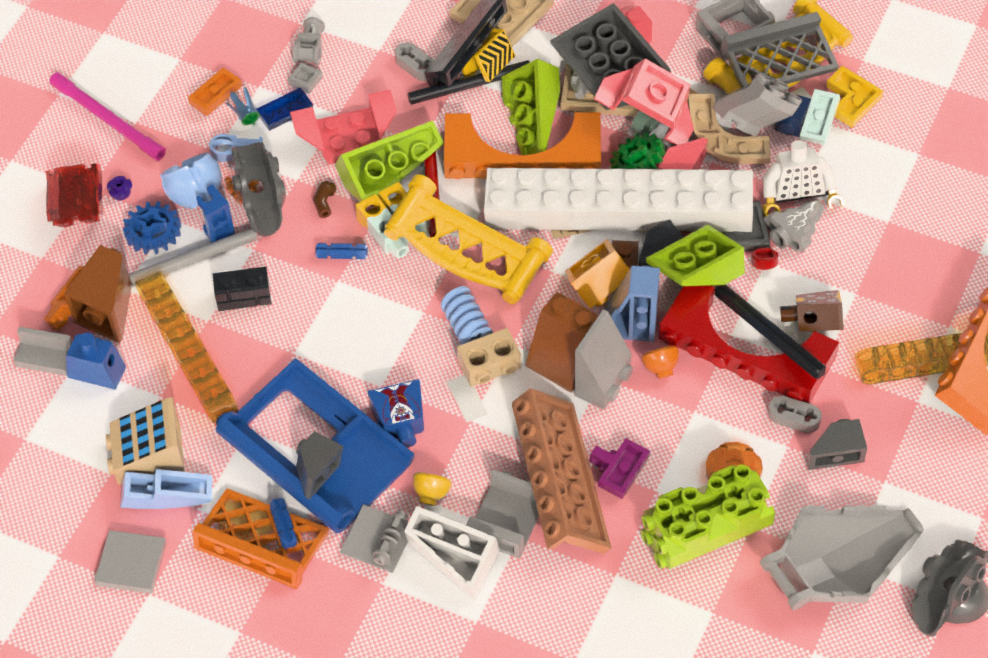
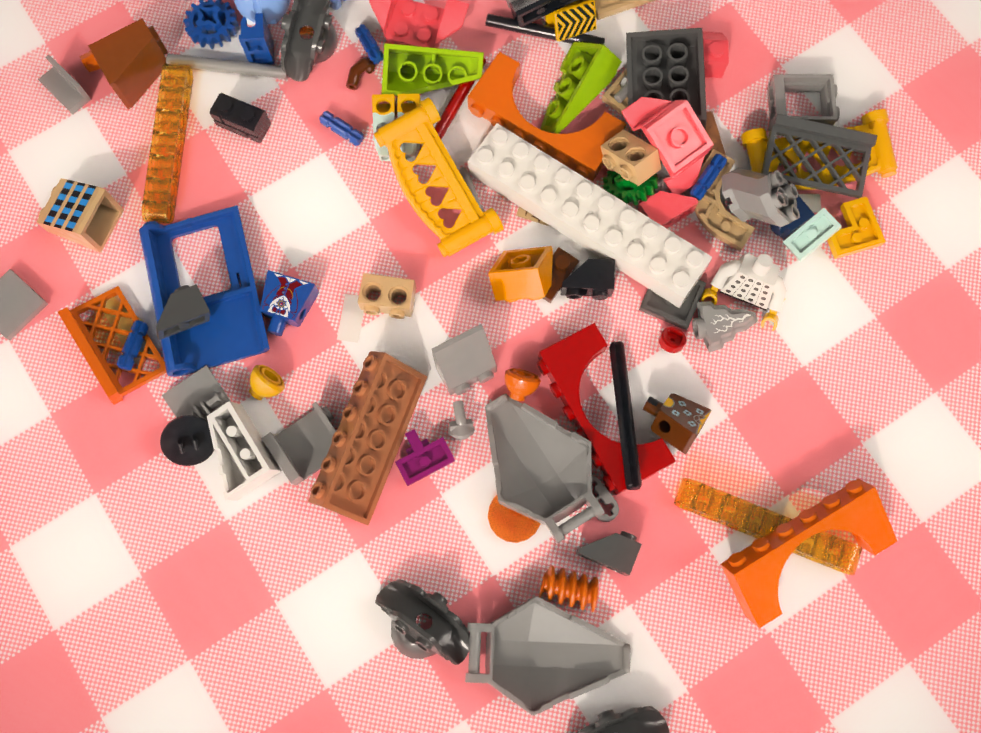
camera: 30 degrees right, 20 degrees up
(94, 361) = (84, 112): blue torso -> none
(165, 489) = (71, 259): light blue slope -> none
(317, 170) = (369, 44): none -> blue axle
(396, 569) = (187, 440): none -> black piece
(465, 315) = (390, 248): light blue piece -> none
(556, 337) = (446, 314): dark orange slope -> none
(626, 132) = (631, 157): none -> tan brick
(635, 423) = (461, 427): none -> light grey plate
(636, 304) = (527, 325): medium blue wedge -> none
(701, 116) = (708, 176): none -> blue axle
(701, 259) = (609, 314): lime slope -> none
(706, 518) = (452, 554): lime brick -> none
(719, 591) = (445, 636): none -> dark grey piece
(728, 410) = (540, 466): none -> light grey windscreen
(826, 488) = (570, 588): none -> orange piece

